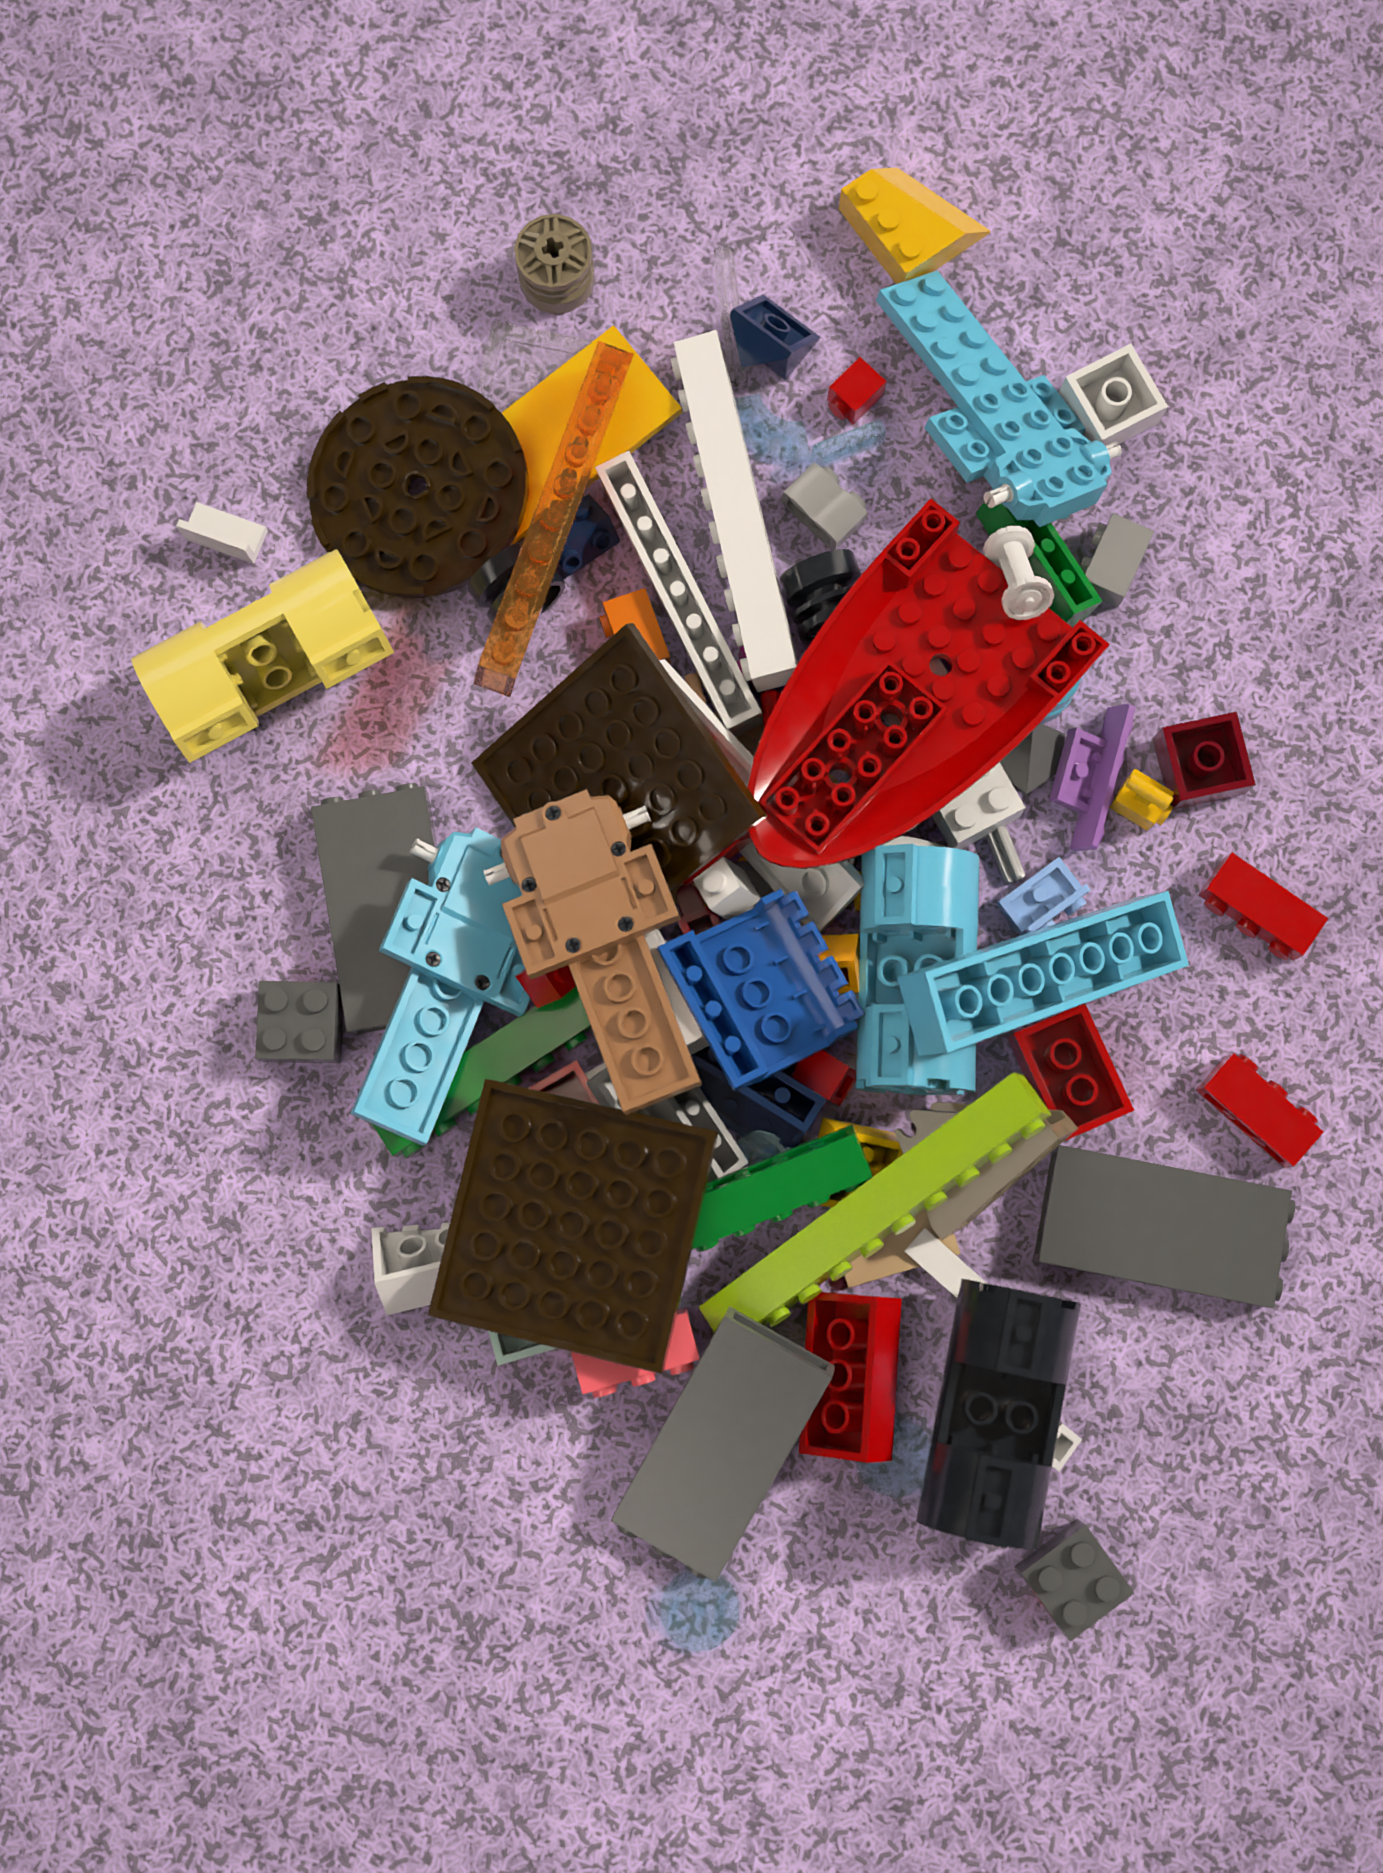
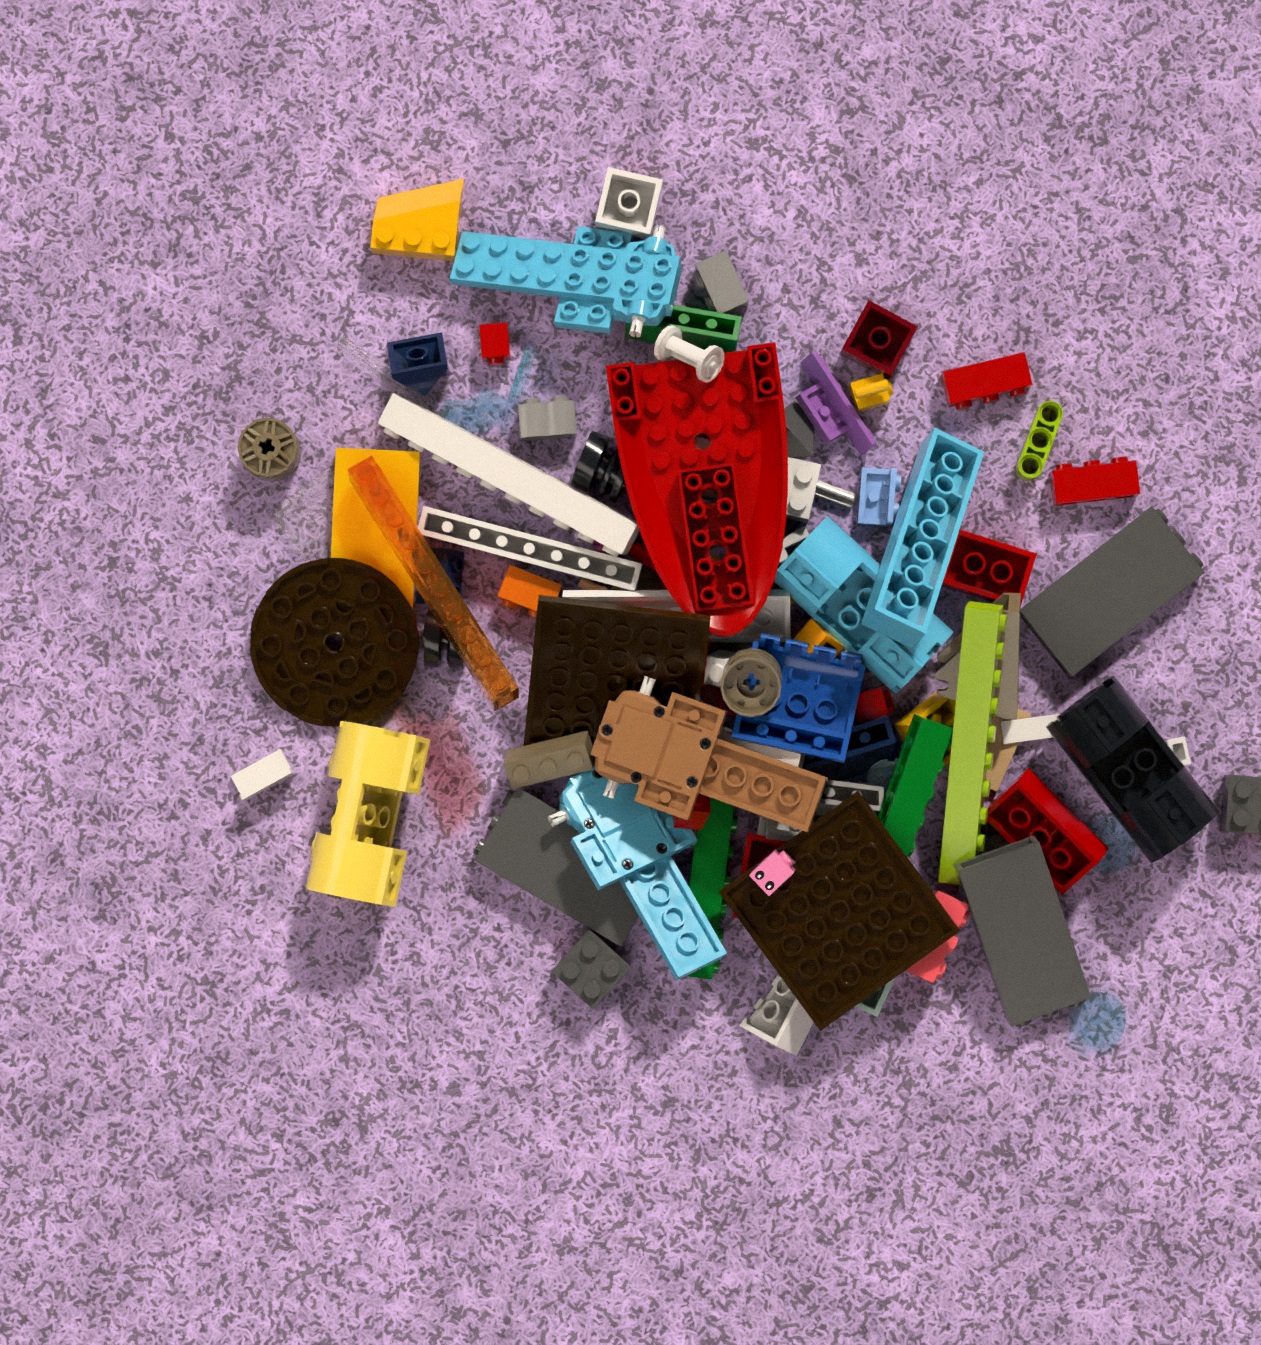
camera: 50 degrees left, 5 degrees up
(474, 791) = (549, 759): none -> dark tan brick
(552, 1115) = (773, 871): none -> bright pink brick
(711, 918) = (747, 698): none -> dark tan wheel
(1267, 1010) = (1048, 431): none -> lime beam

